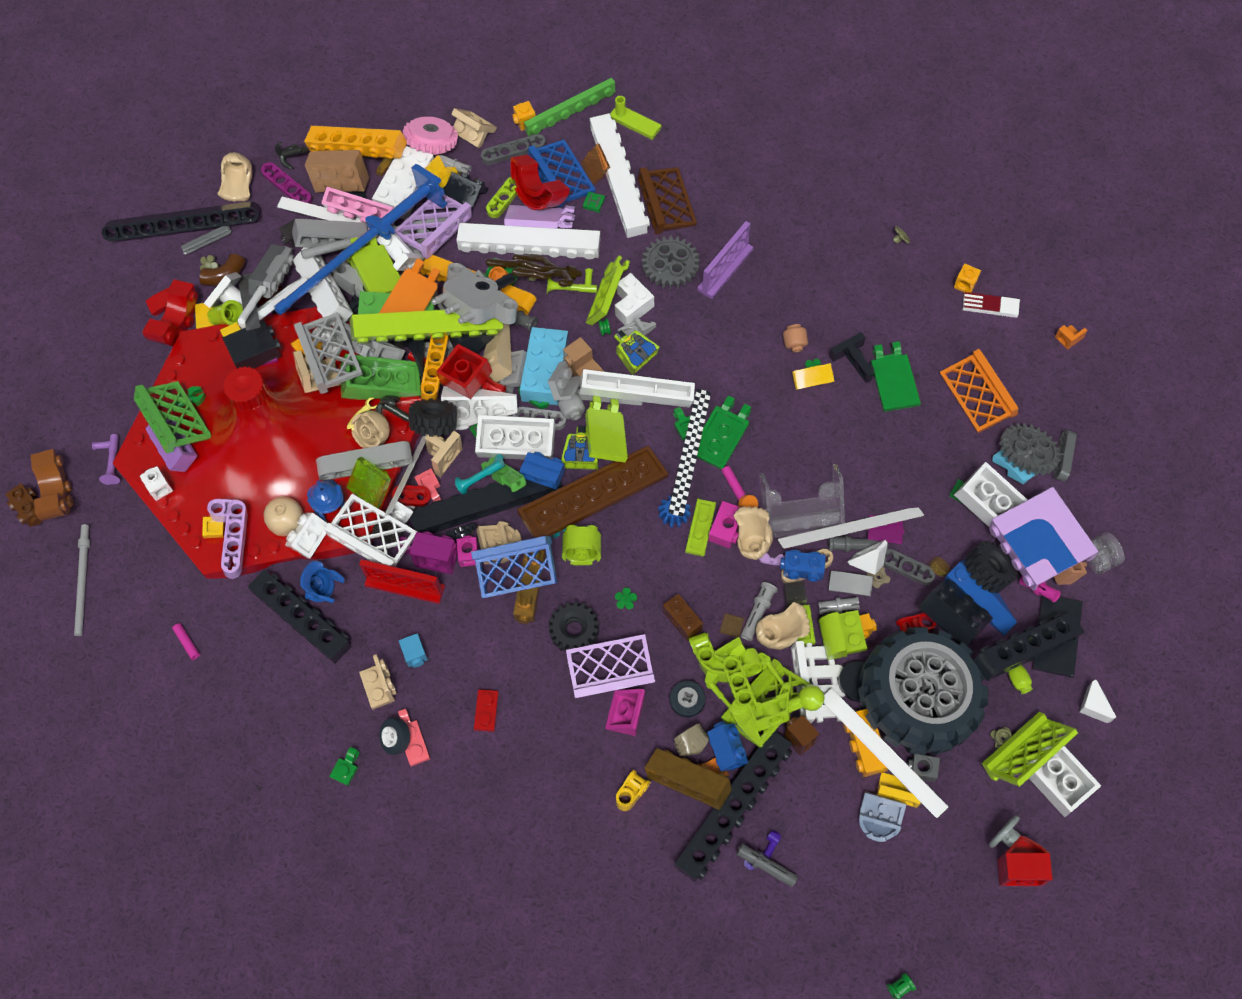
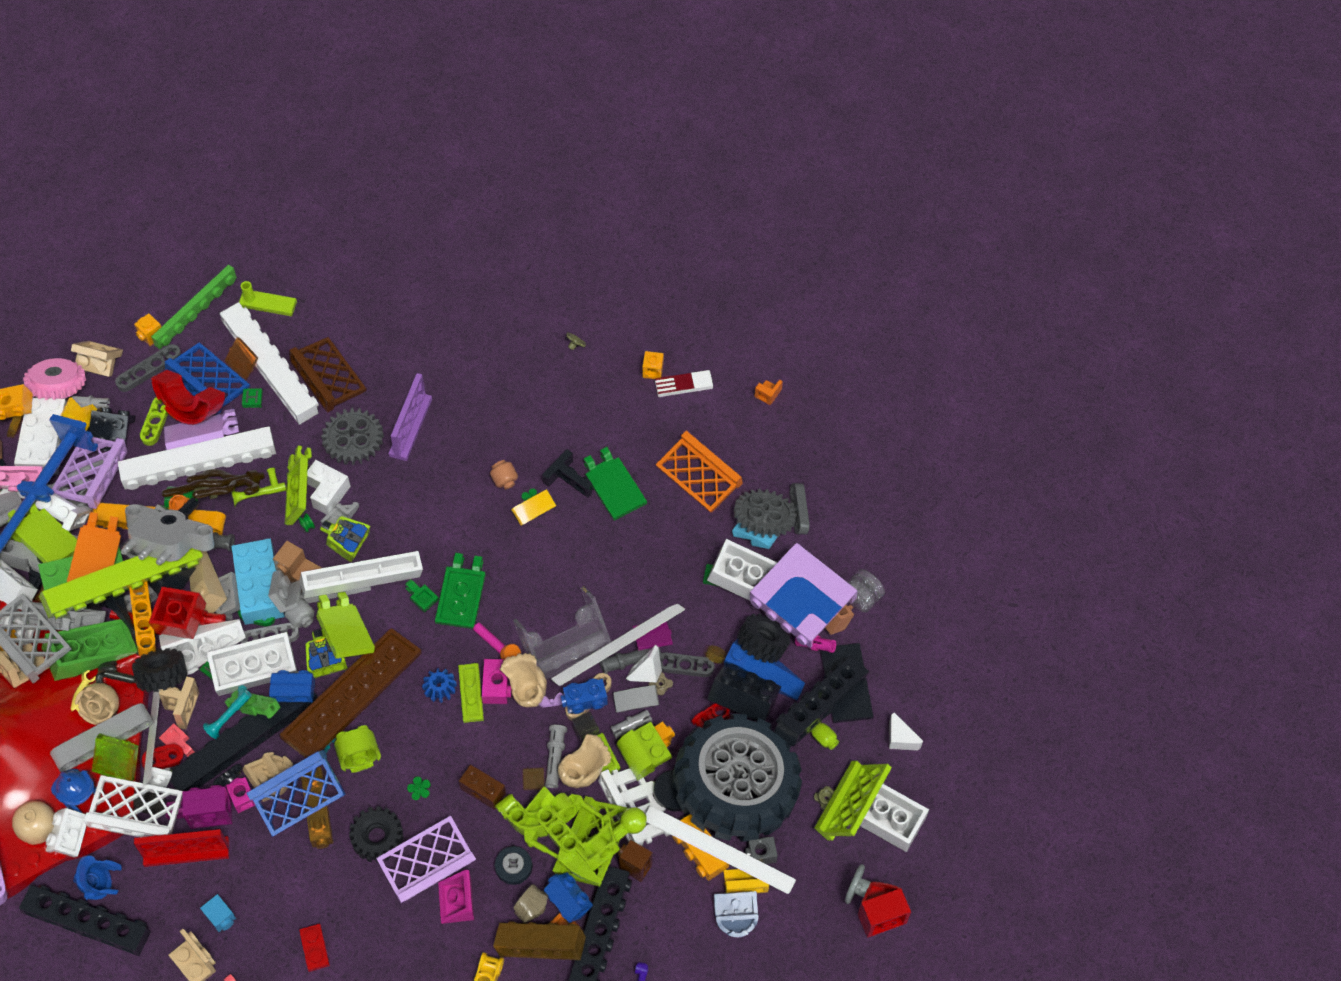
camera: 25 degrees left, 5 degrees down
(689, 453) = (435, 622): sticker -> none

